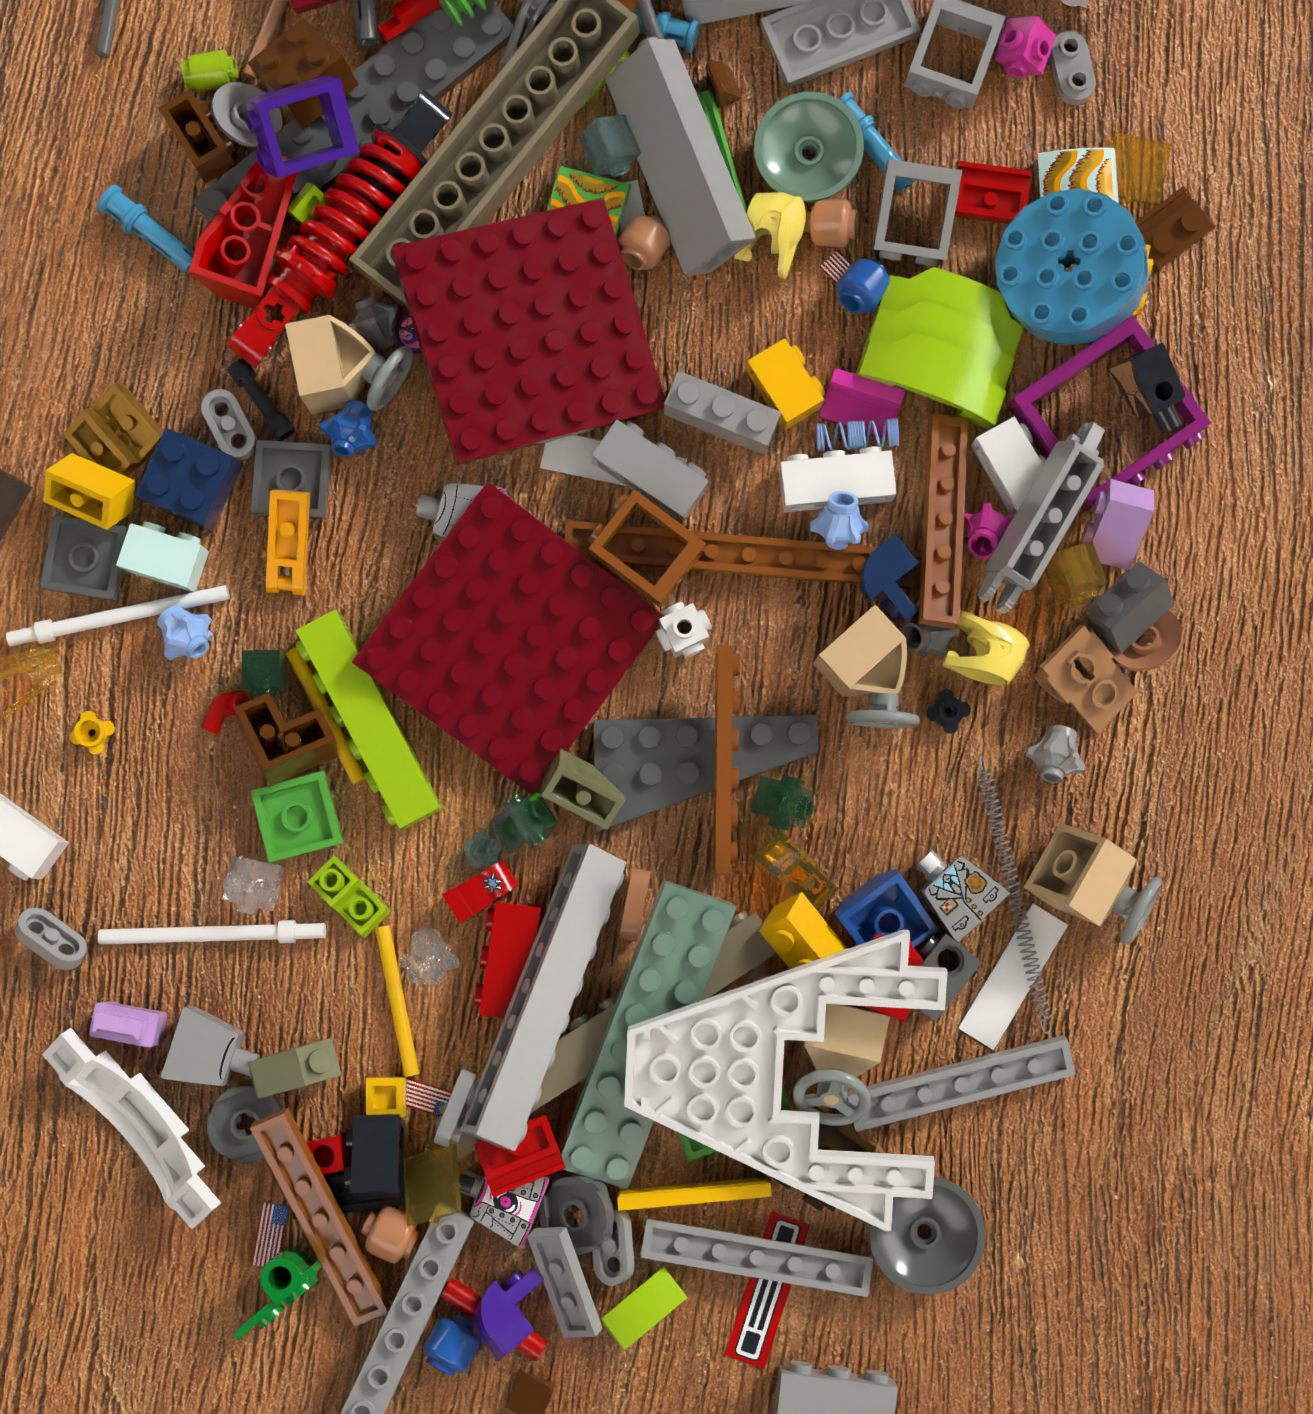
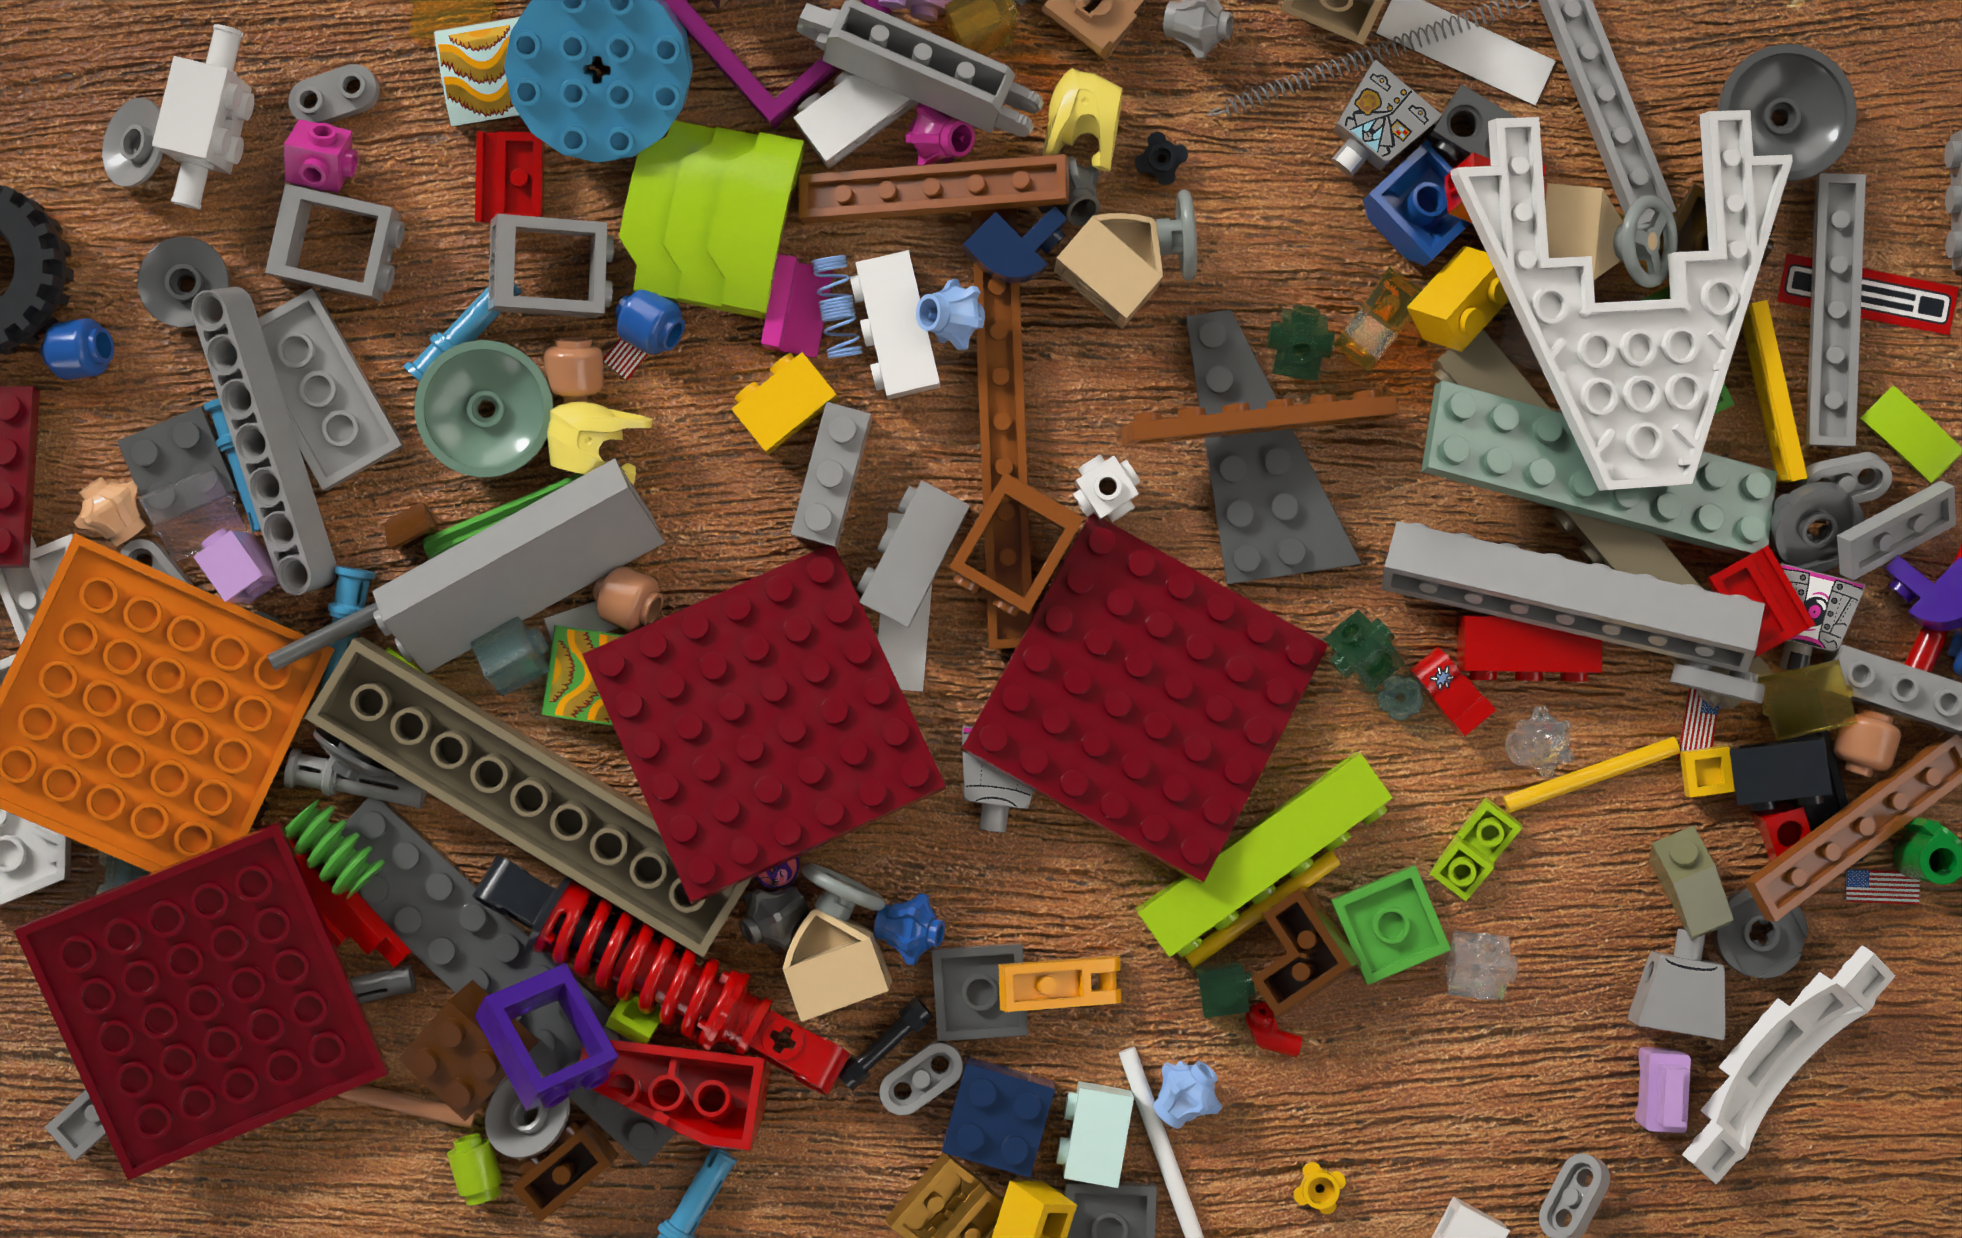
camera: 90 degrees left, 5 degrees up
(285, 932) = (1527, 919): white bar -> none
(582, 789) = (1316, 586): olive slope -> none
(634, 904) = (1442, 505): nougat beam -> none

